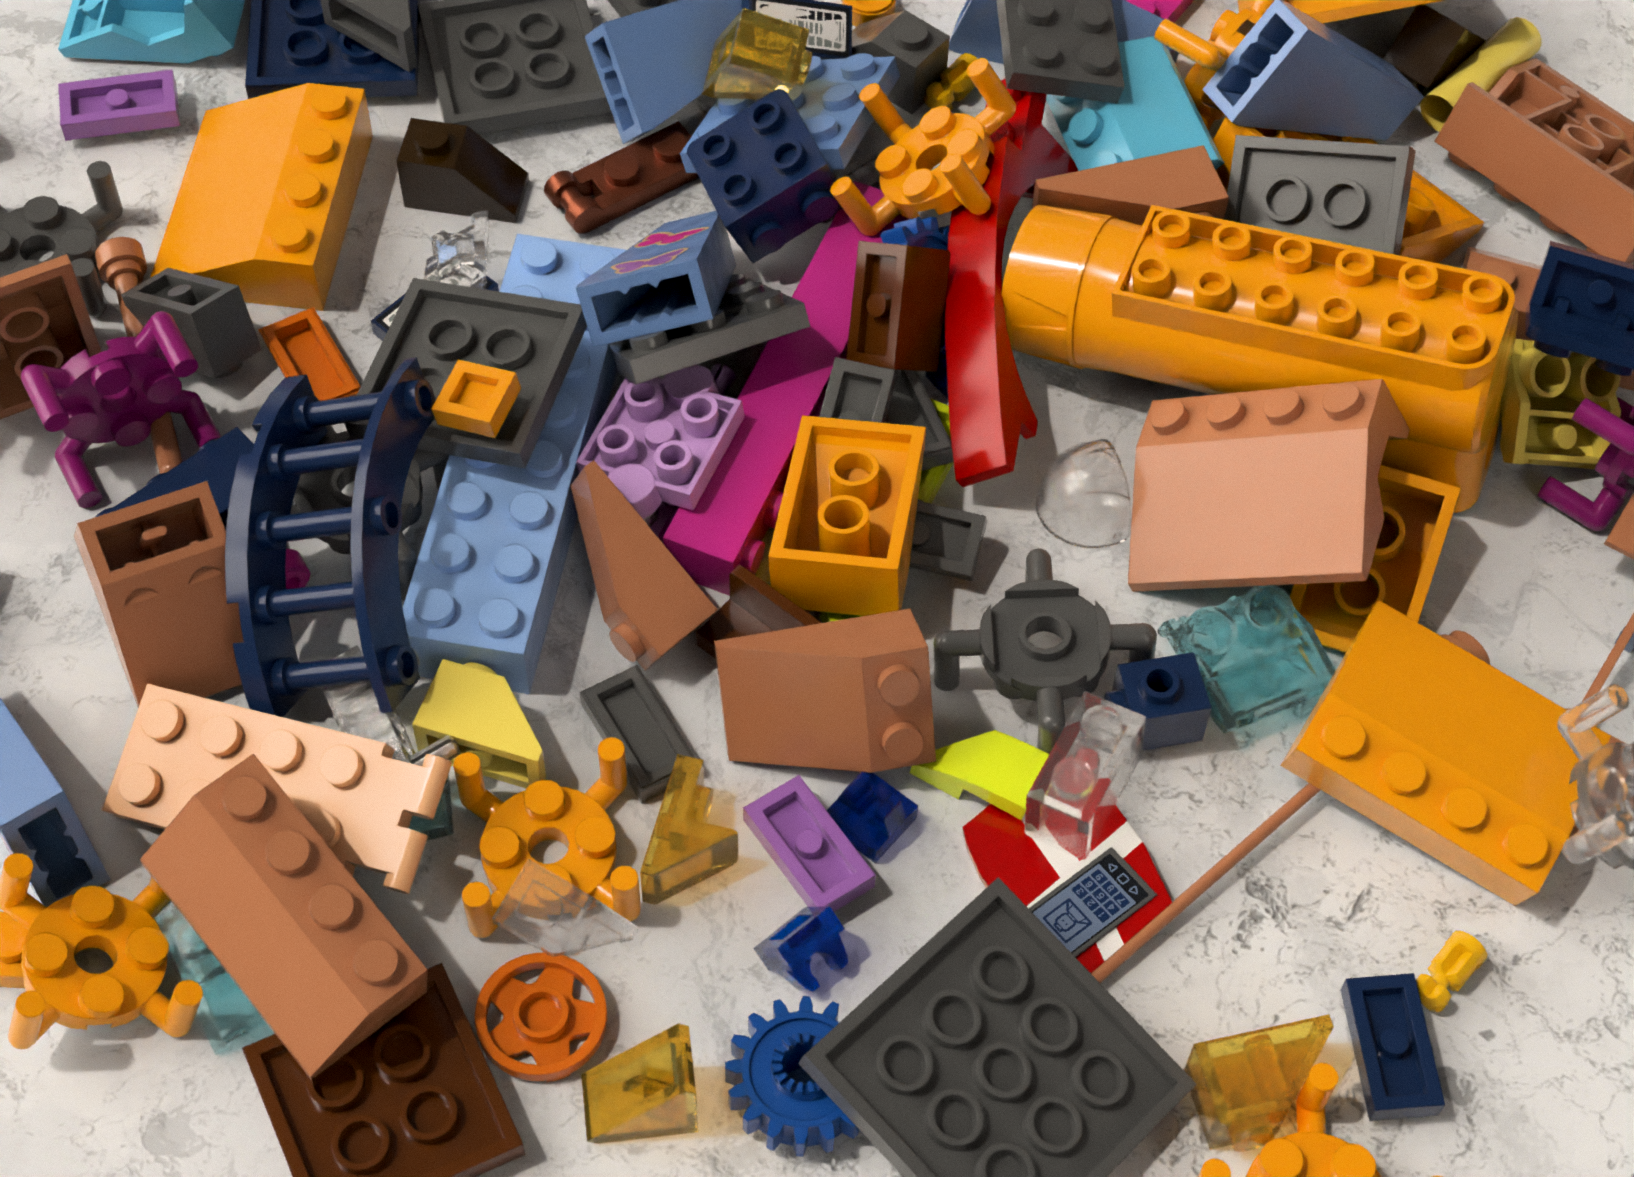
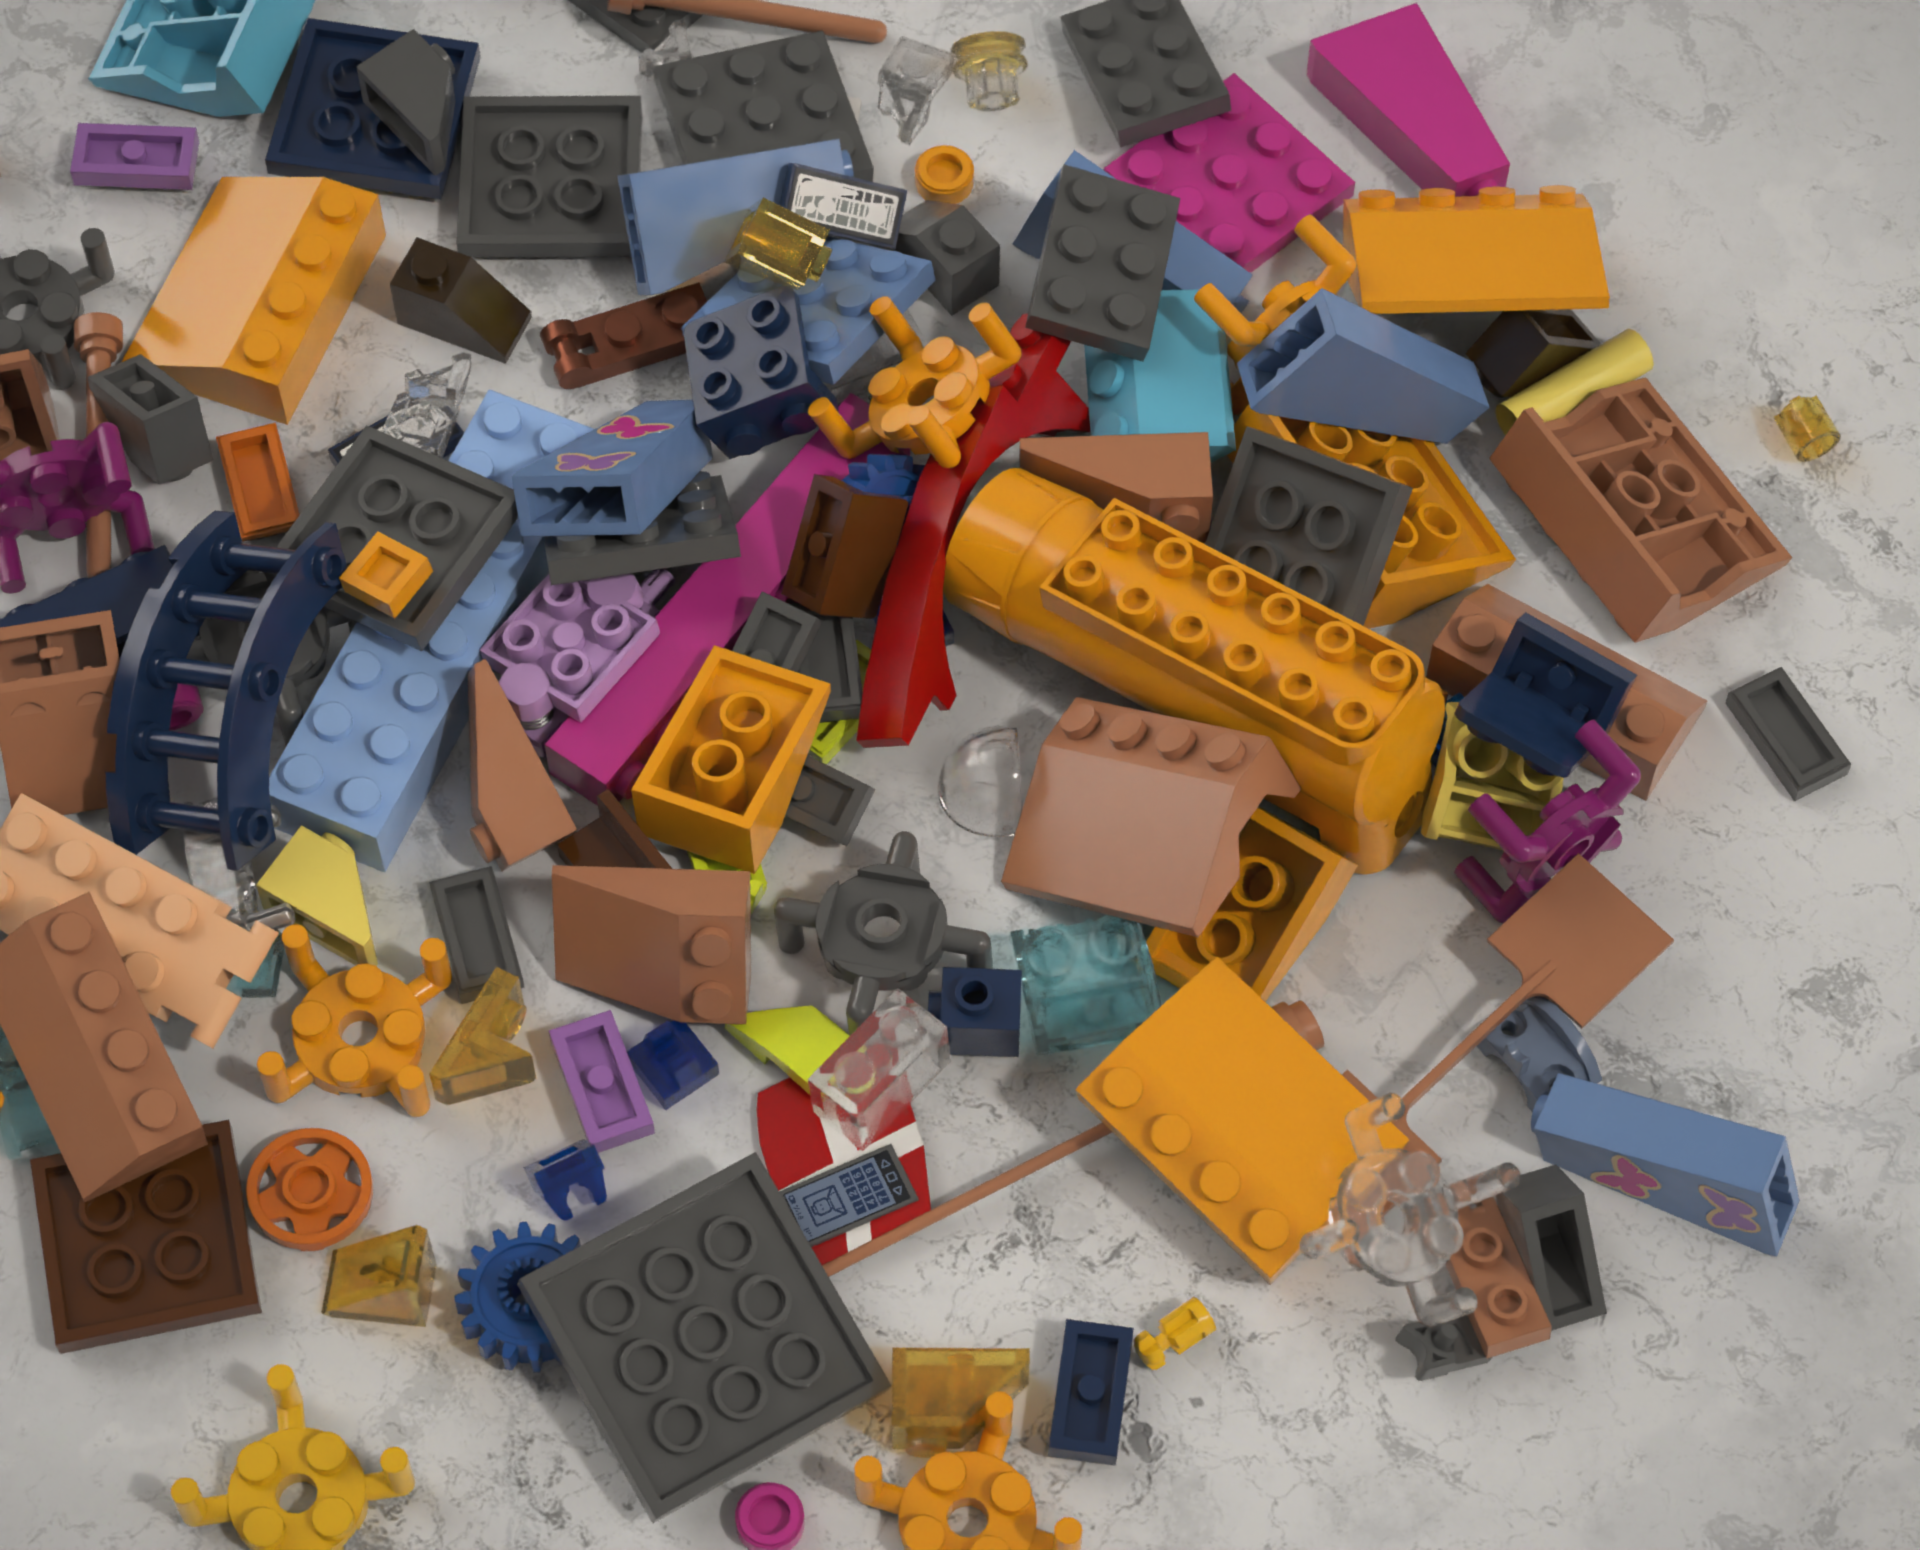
camera: 15 degrees right, 5 degrees up
(558, 915) = (347, 1098): clear slope -> none
(954, 84) = (1006, 287): yellow piece -> none

